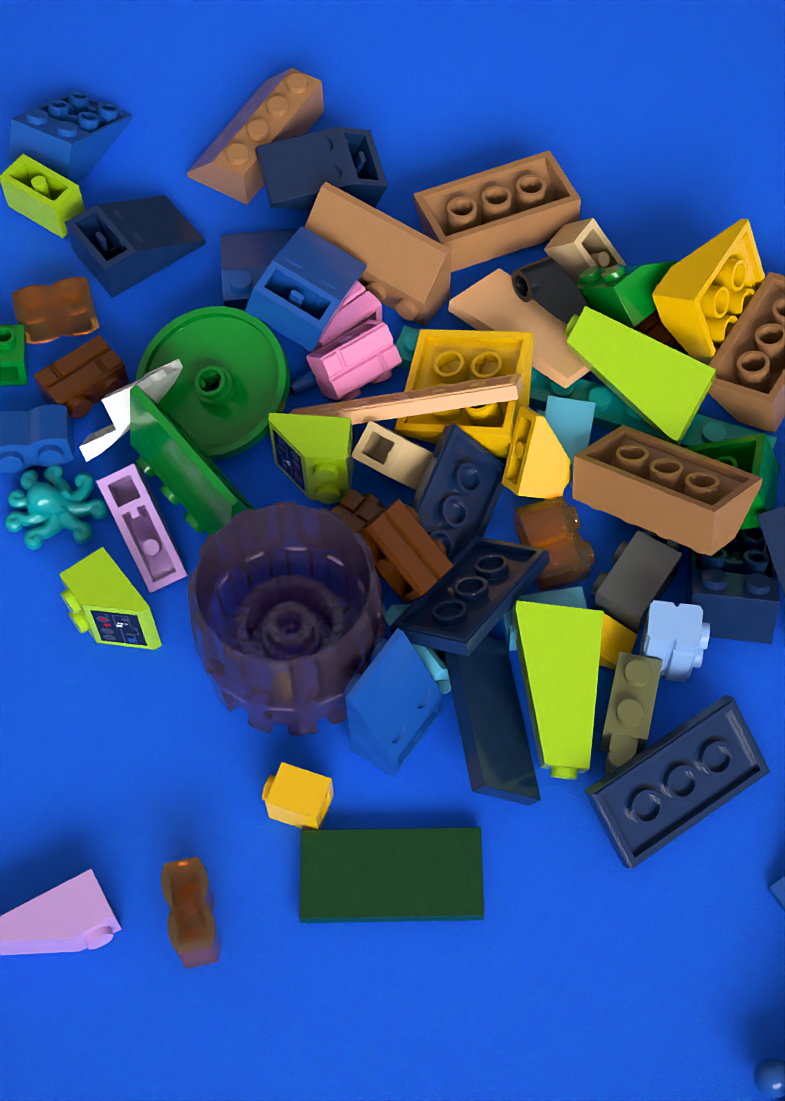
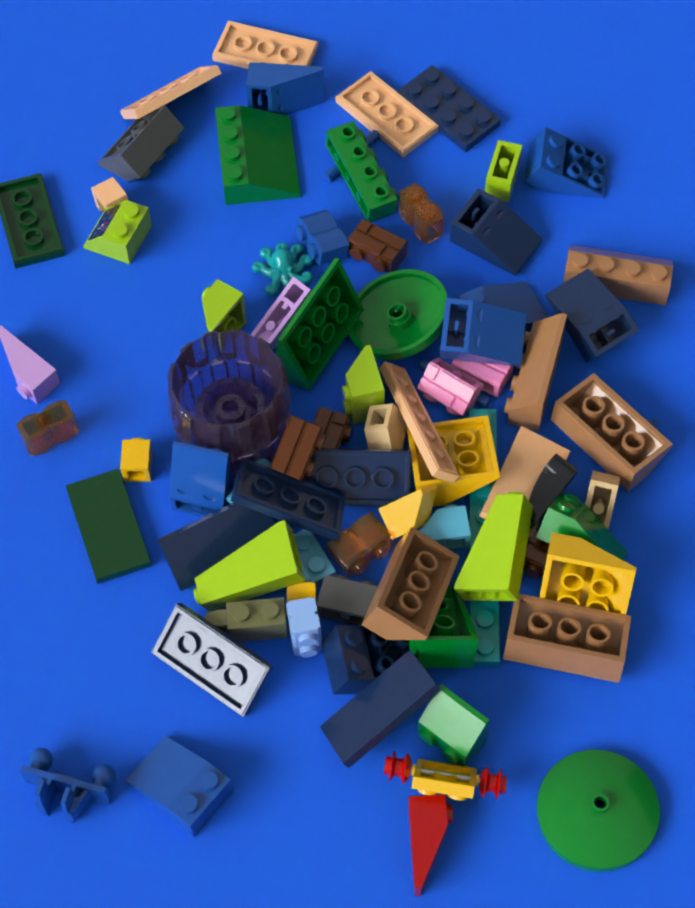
camera: 70 degrees right, 0 degrees up
(117, 403) = (358, 274): white slope -> none

